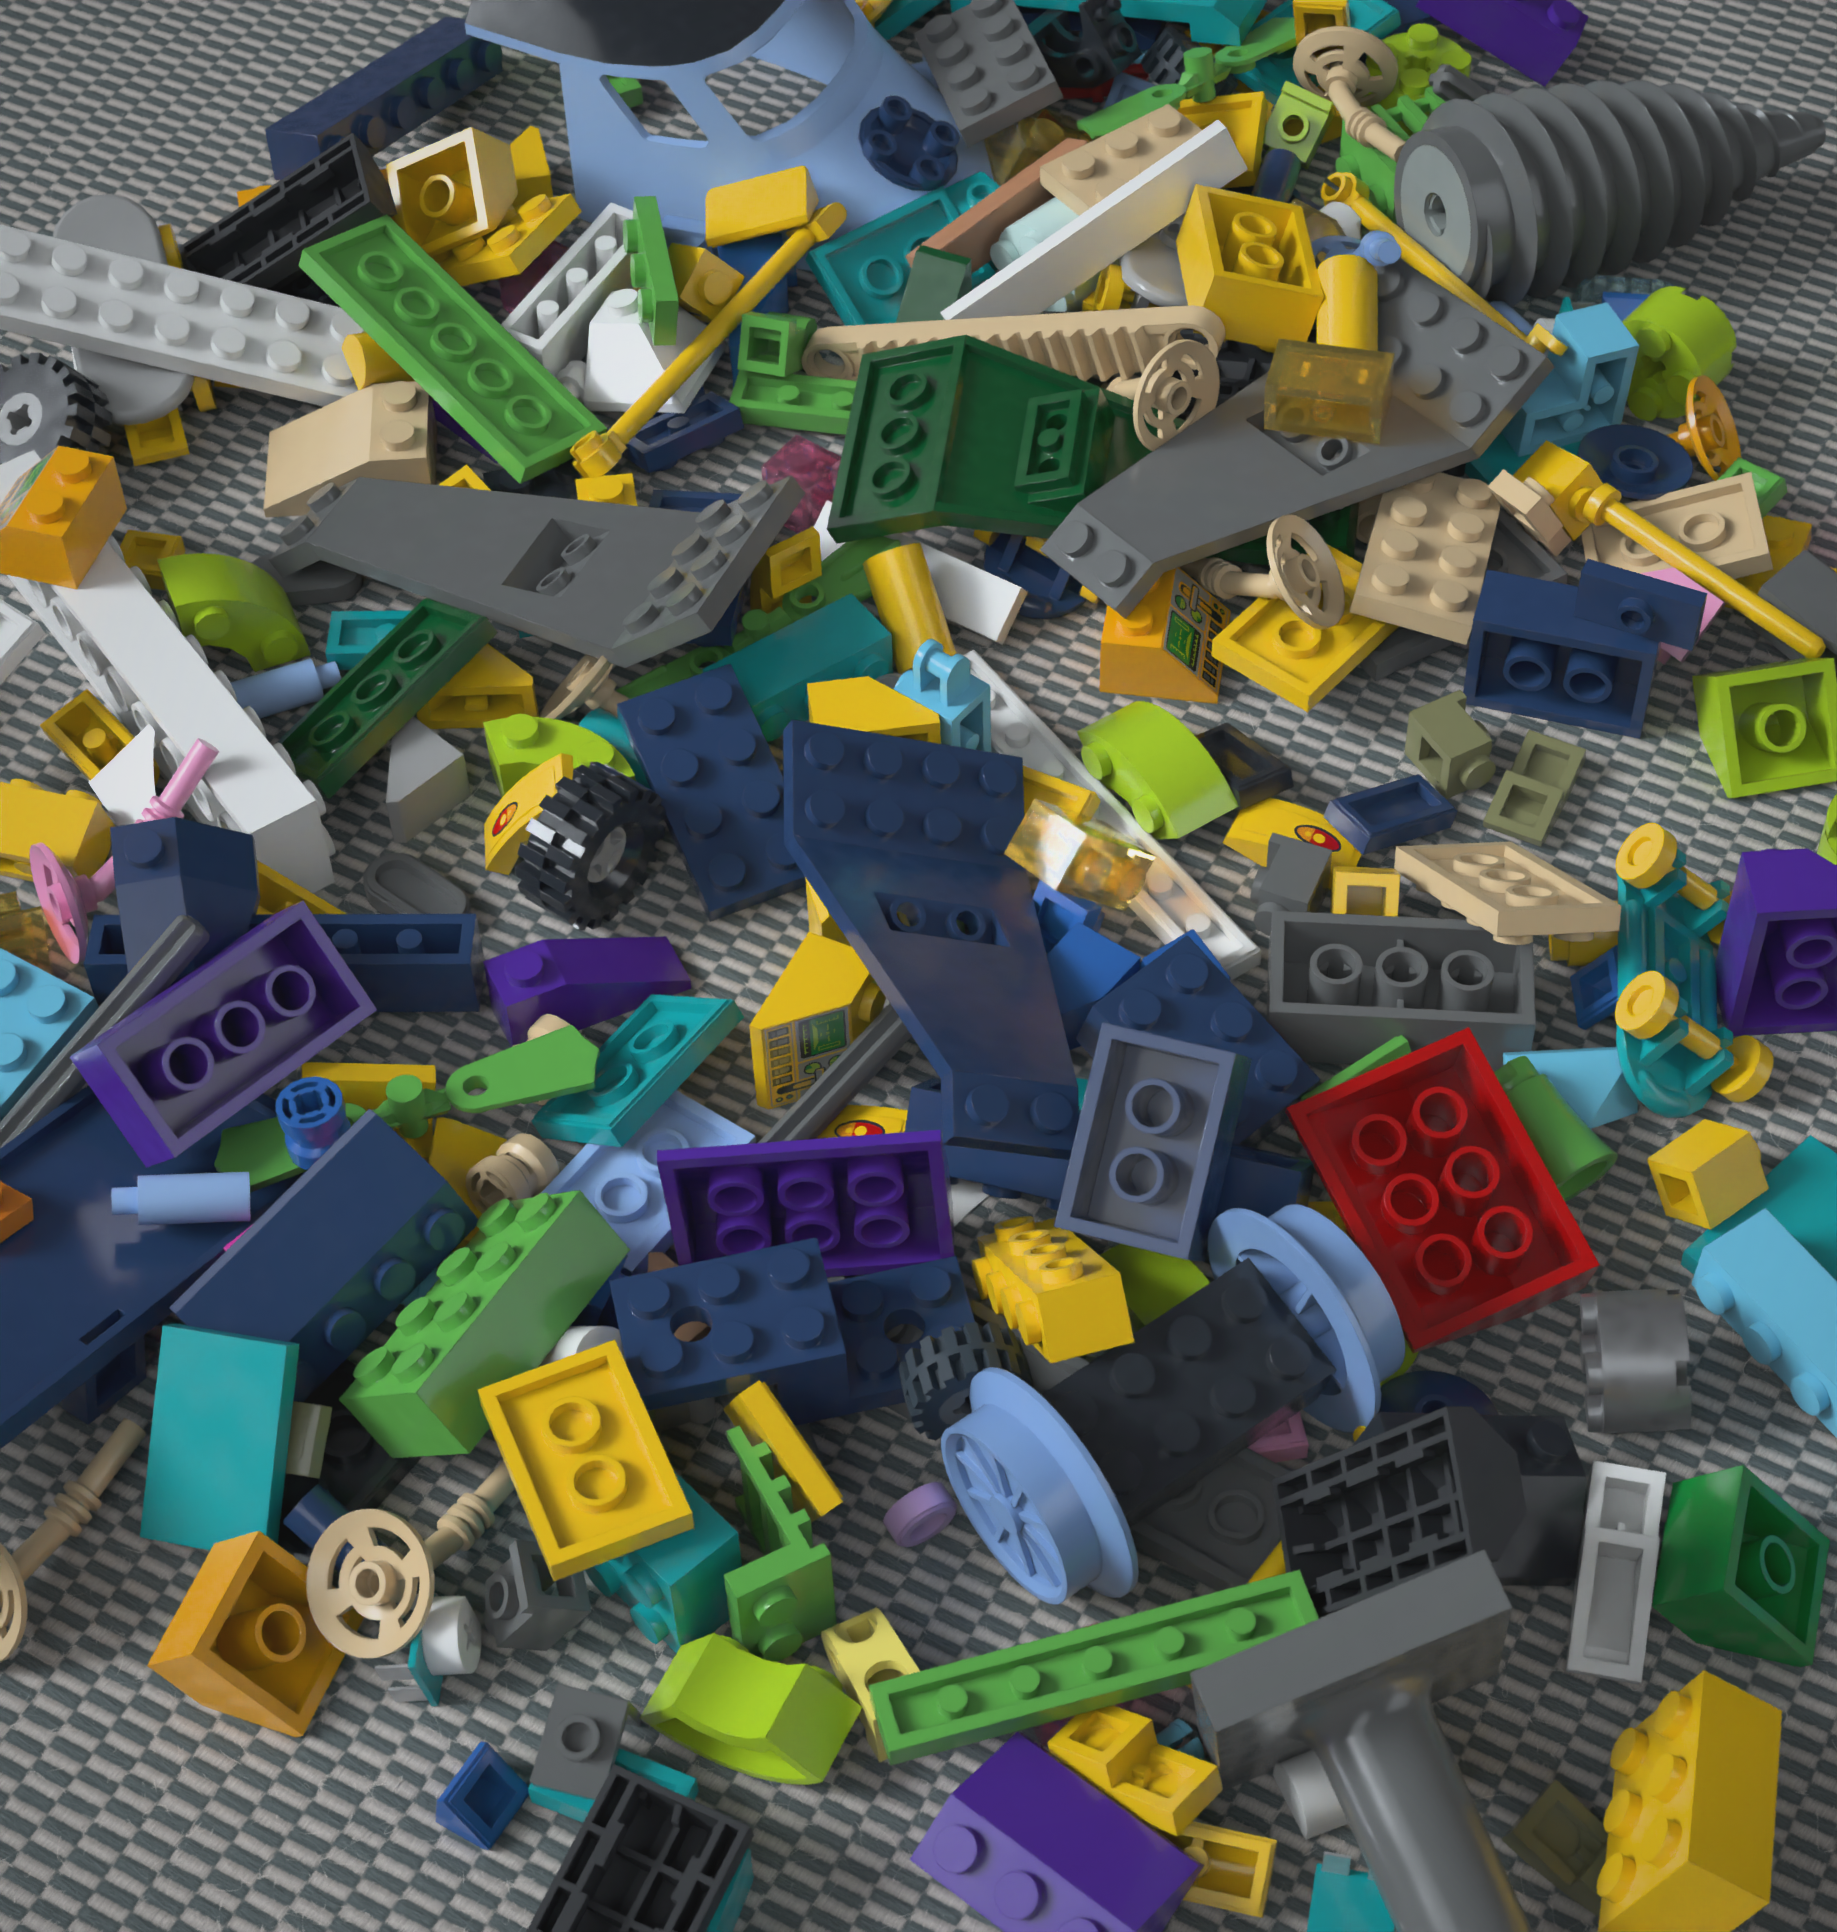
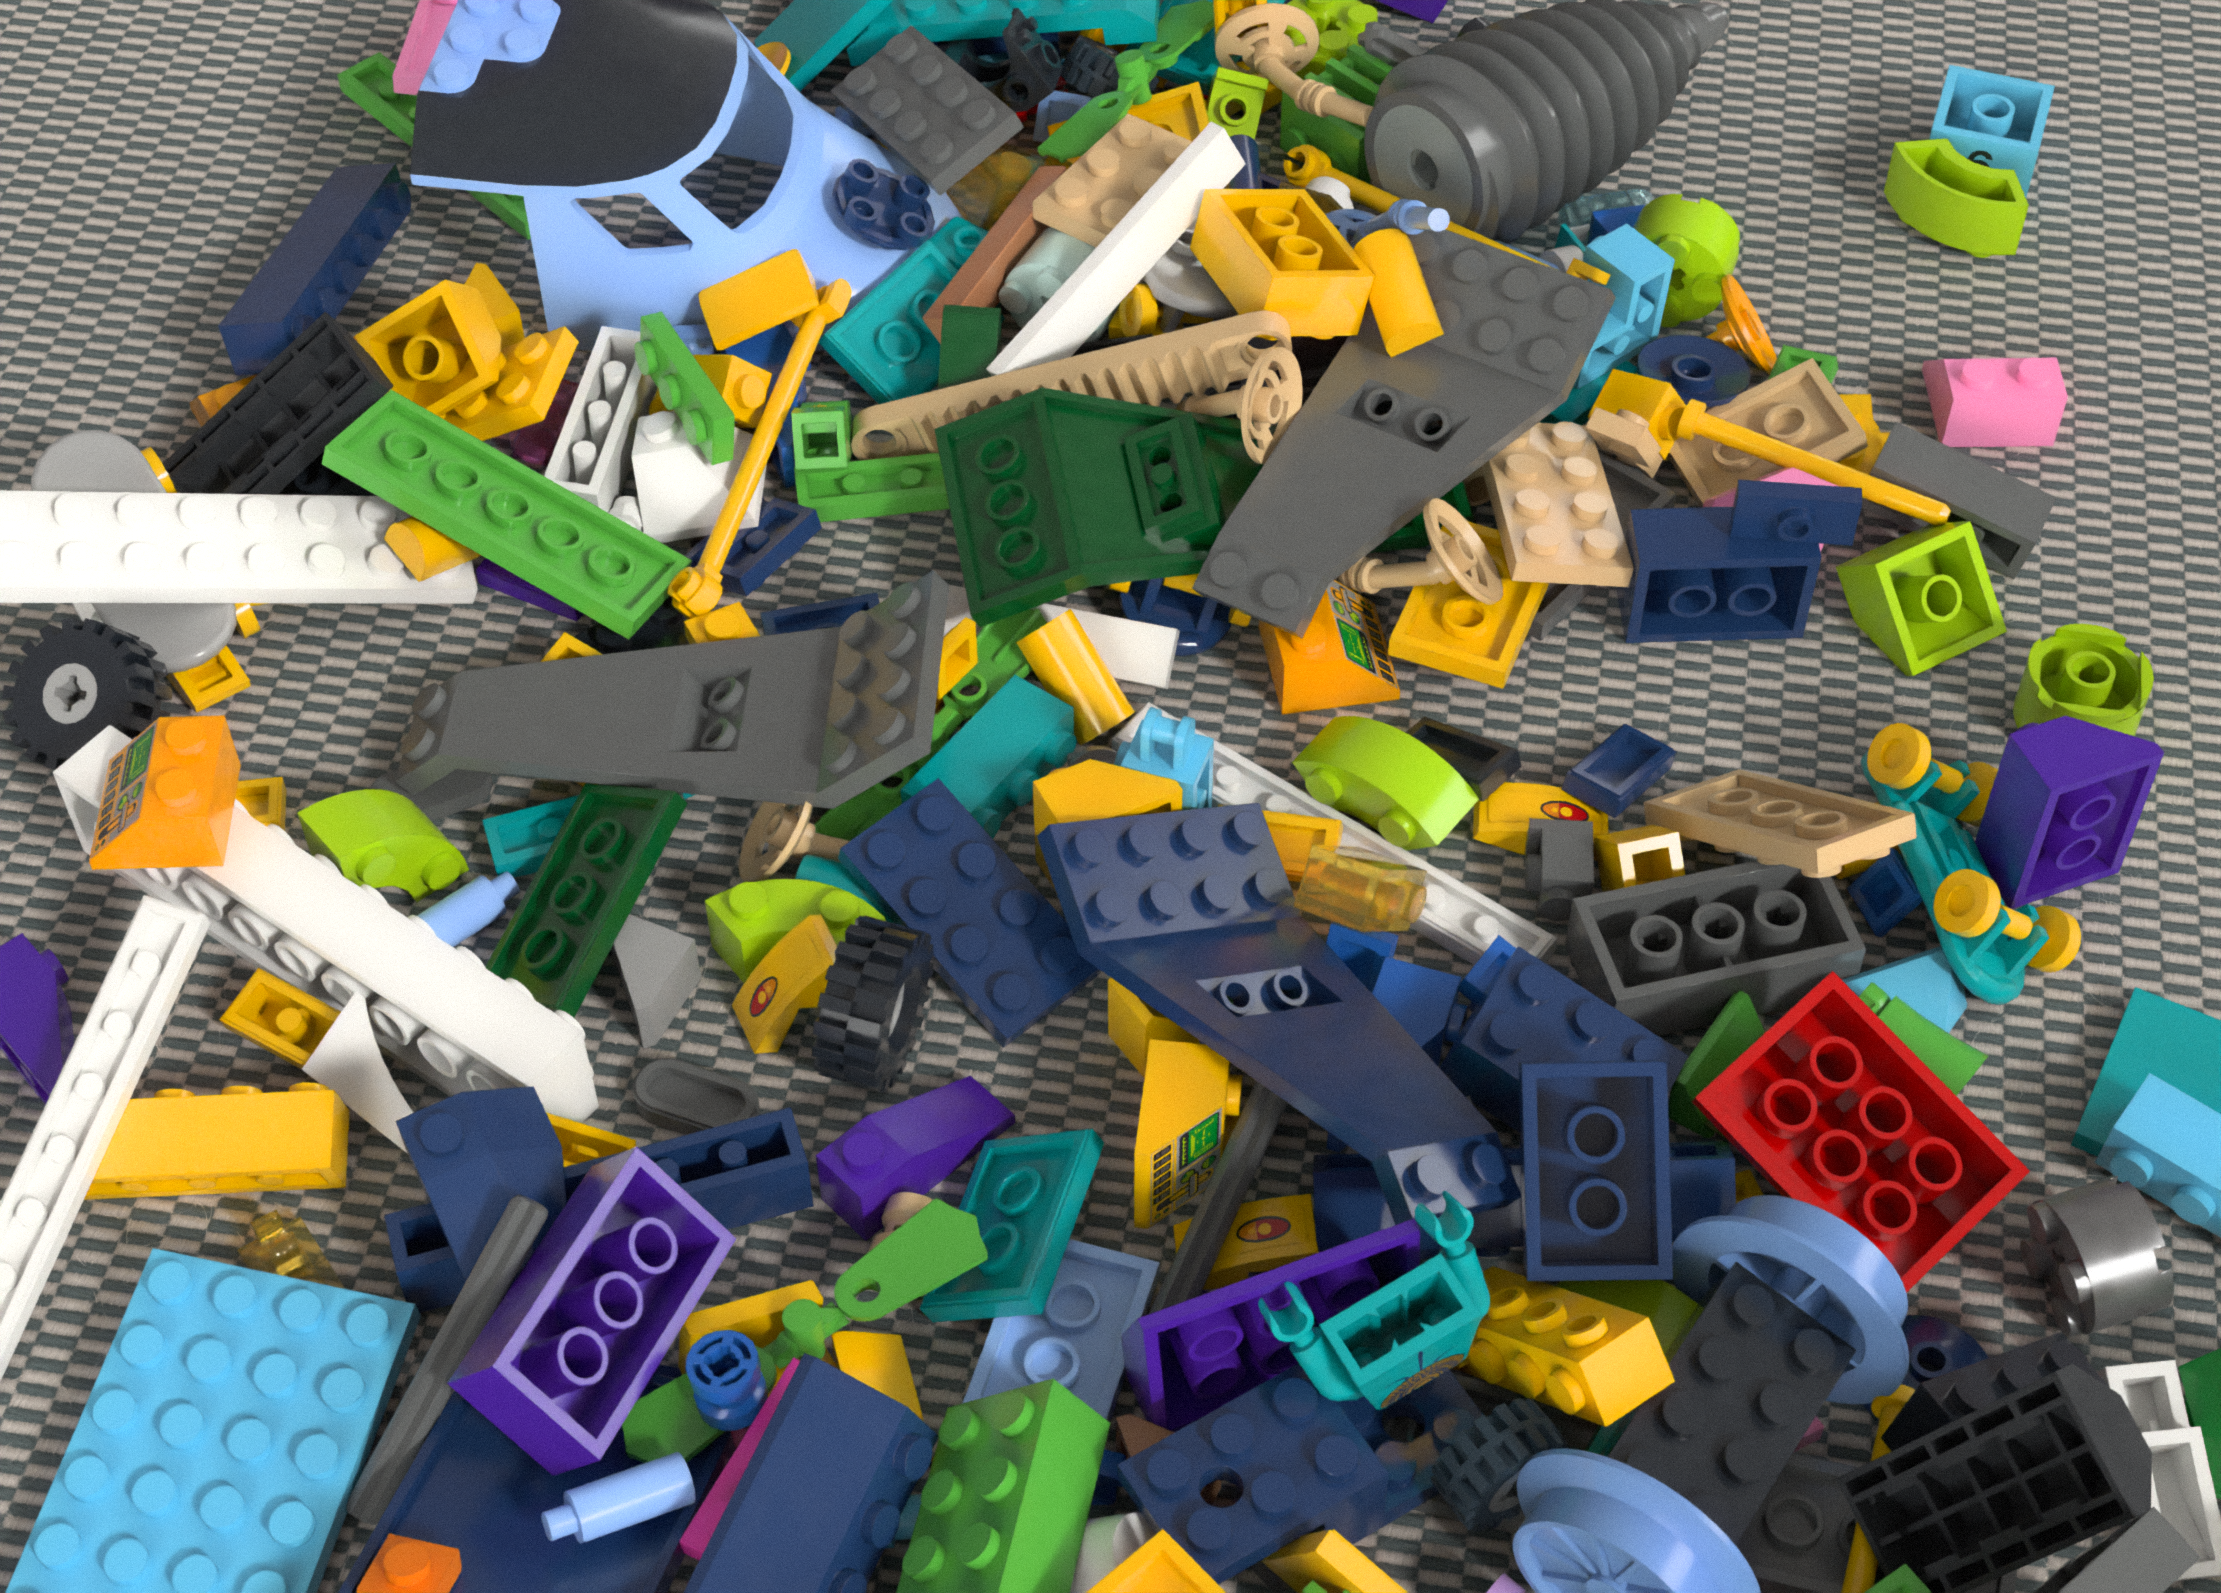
camera: 20 degrees left, 0 degrees up
(70, 898) = (344, 1199): bright pink dish -> none
(372, 433) = (423, 636): tan slope -> none
(481, 692) = (689, 868): yellow slope -> none
(517, 1172) = (935, 1373): tan wheel -> none
(813, 470) = (908, 557): clear pink brick -> none
(899, 1233) = (1402, 1330): none -> teal torso
(1328, 391) = (1414, 367): clear yellow brick -> none
(1449, 745) = (1644, 689): olive brick -> none
(1535, 788) = (1735, 711): olive slope -> none
(1708, 1173) = (2069, 1051): yellow brick -> none

